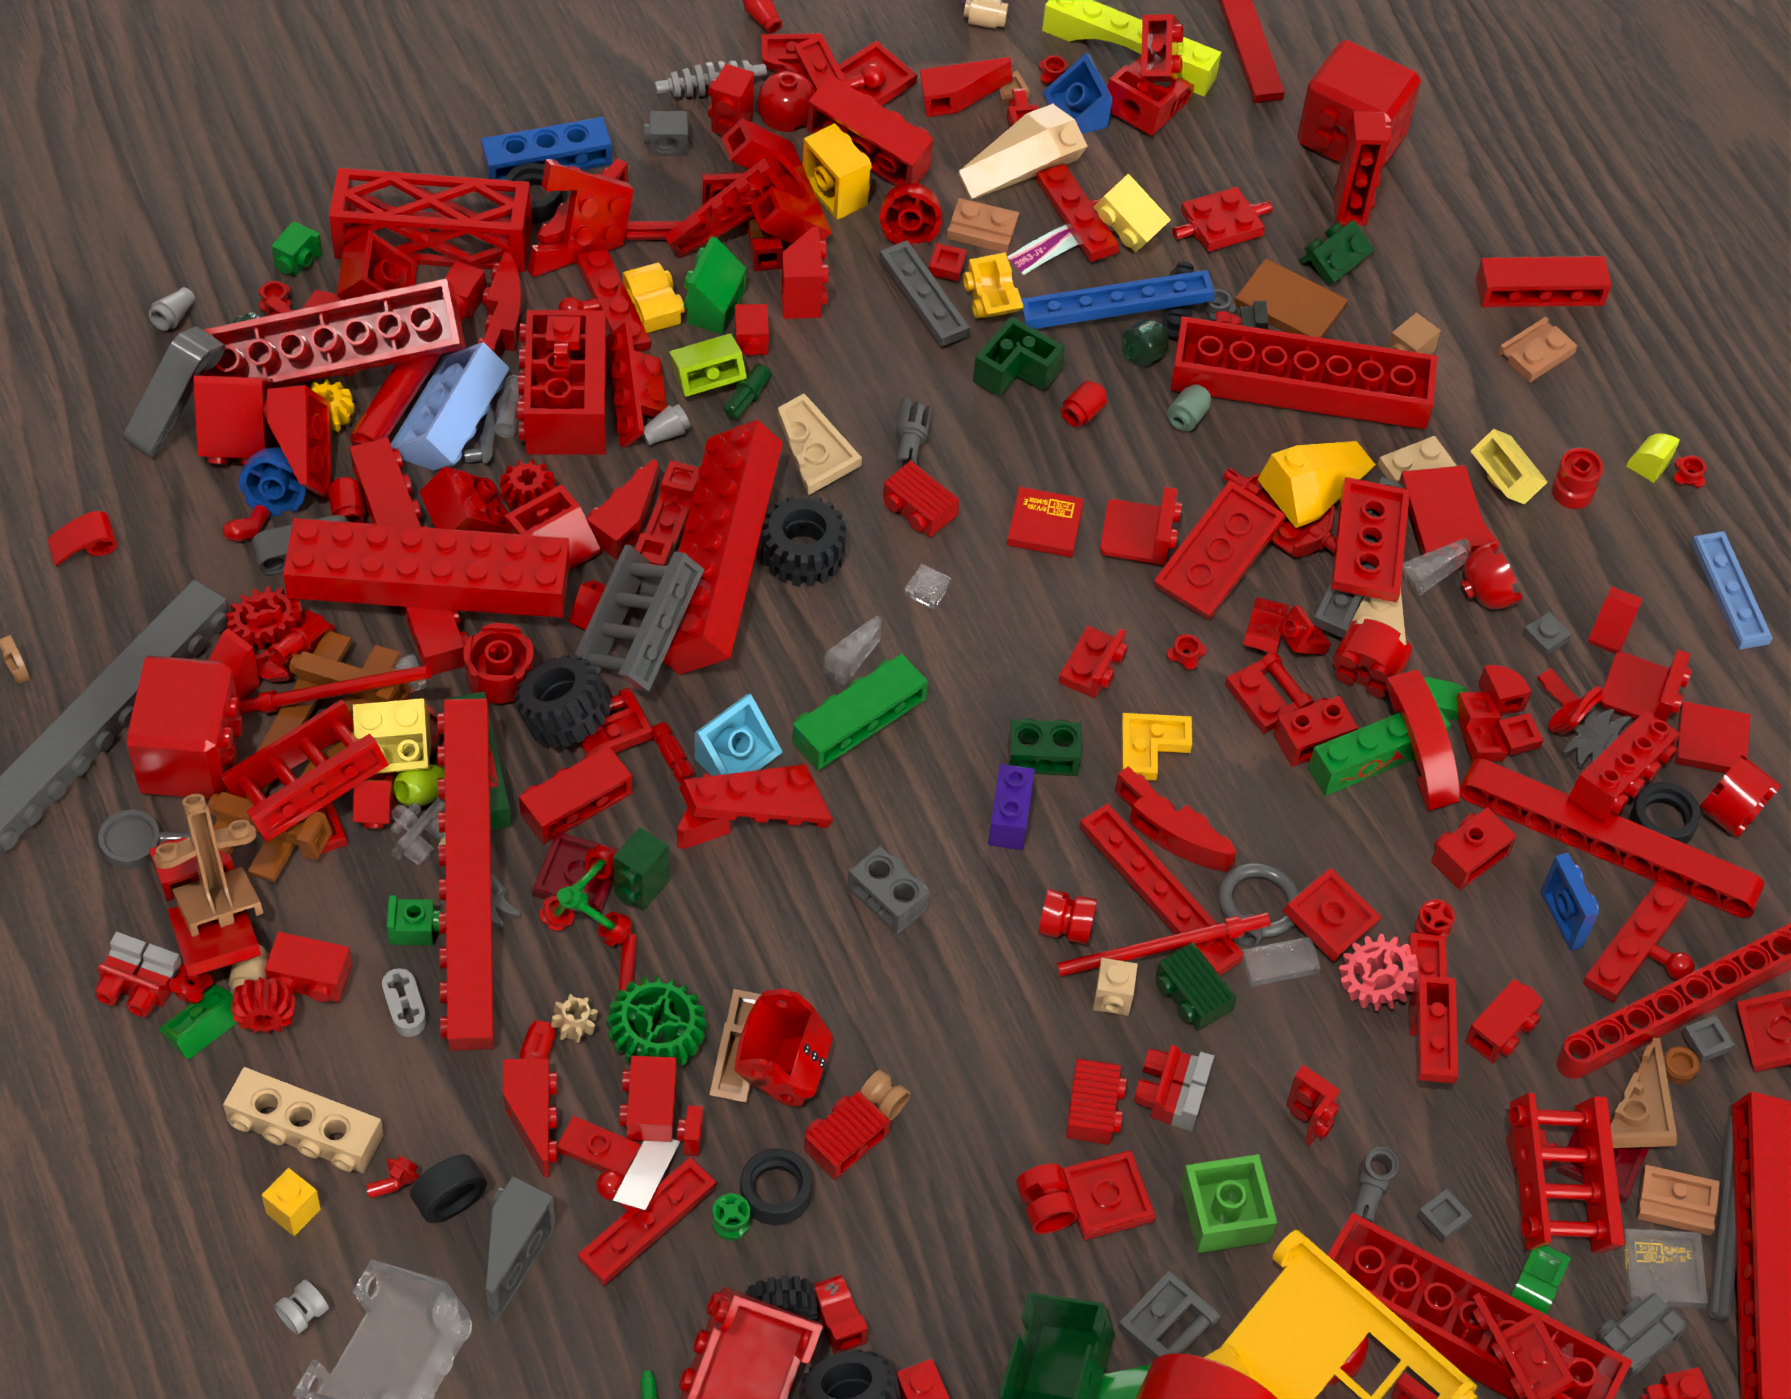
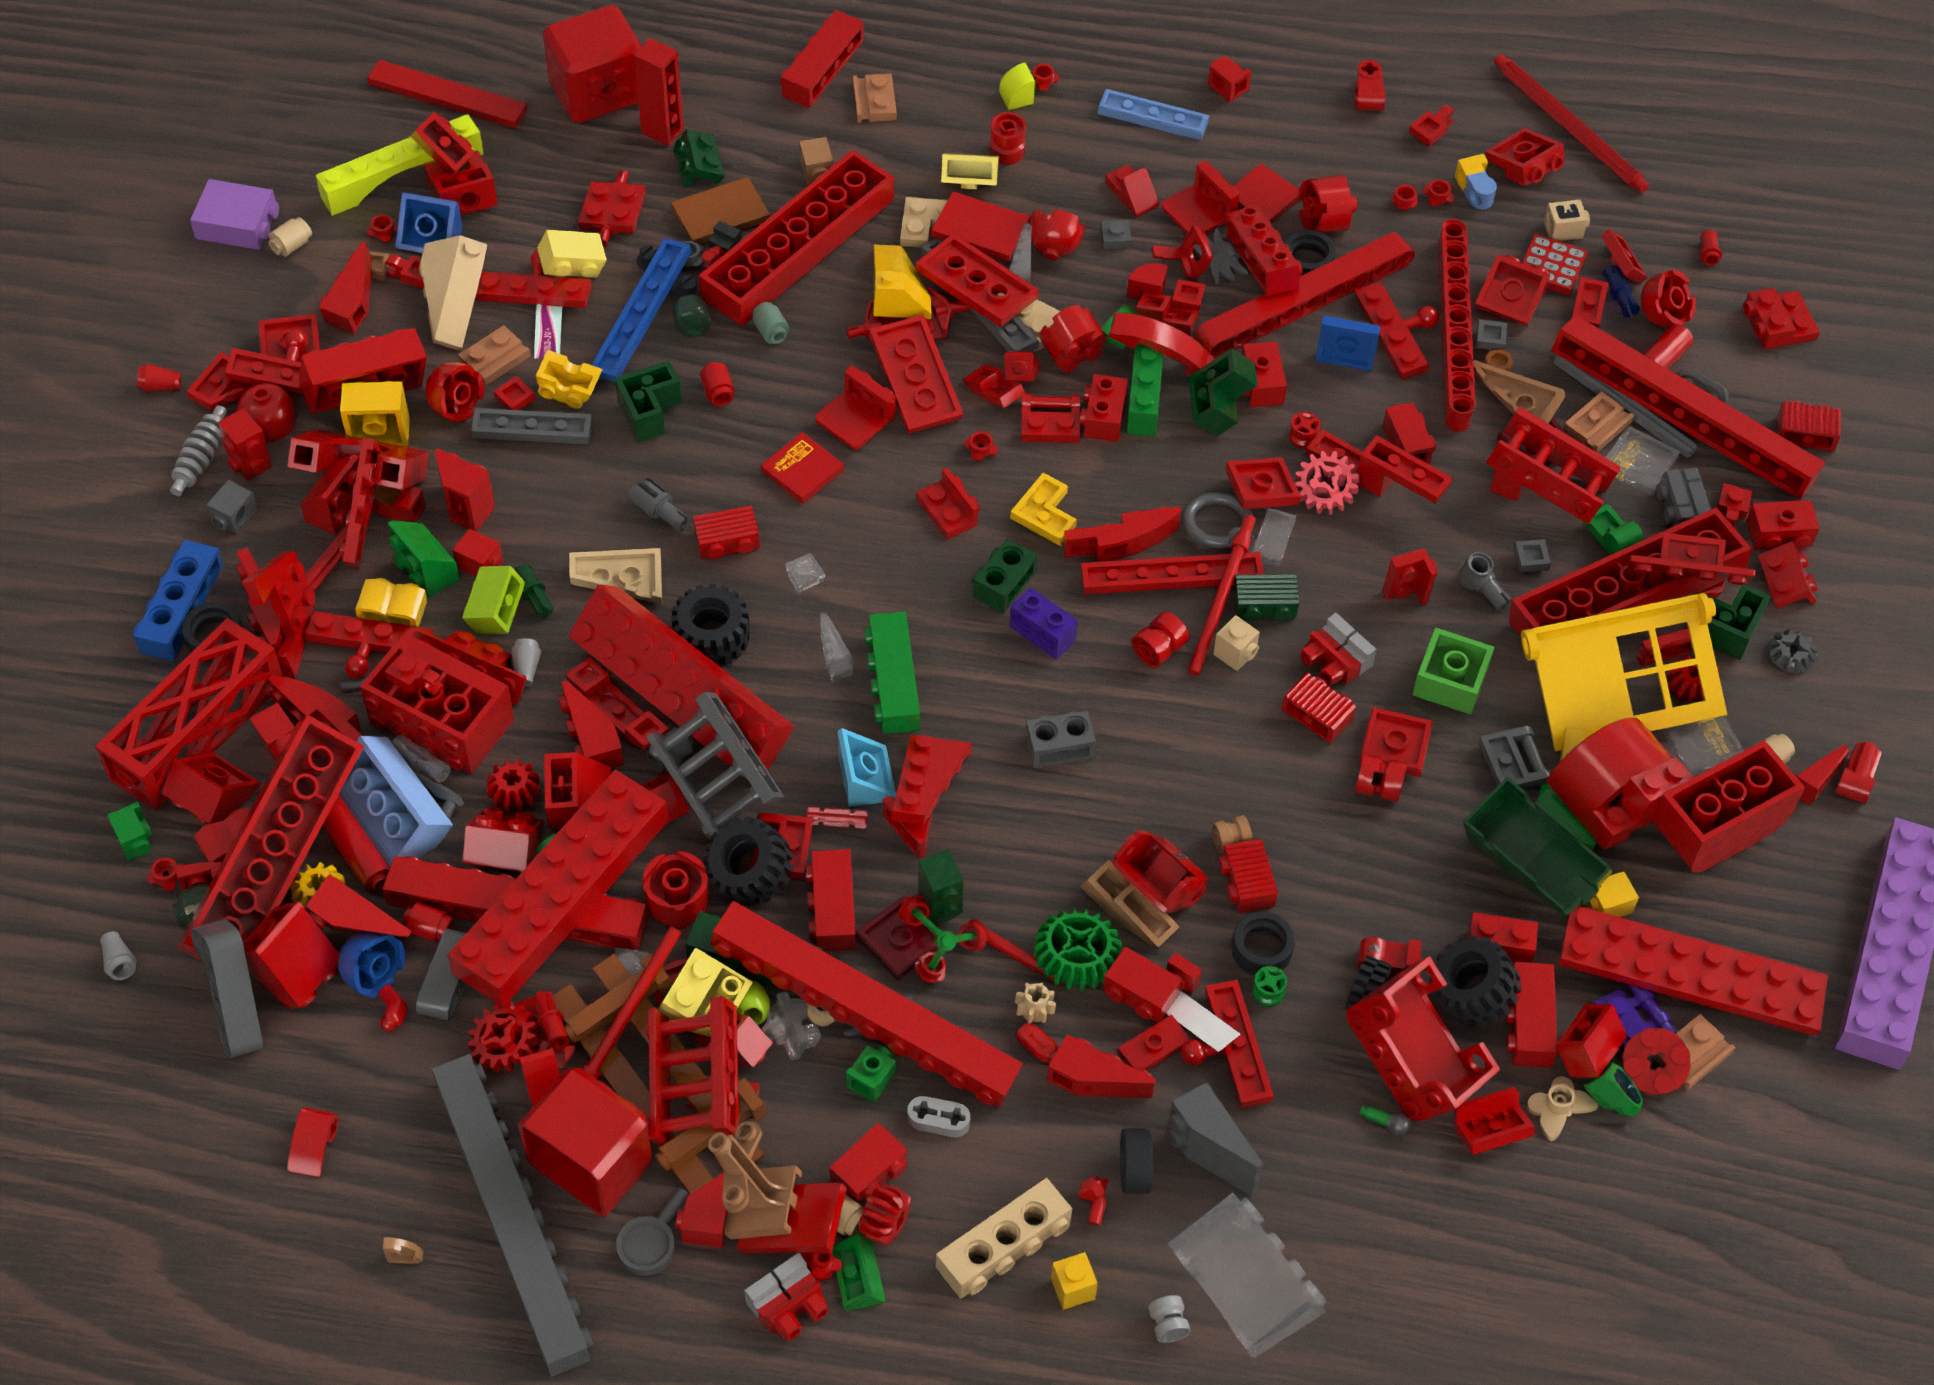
camera: 55 degrees left, 0 degrees up
(1408, 814) = (1217, 388): none -> dark green brick

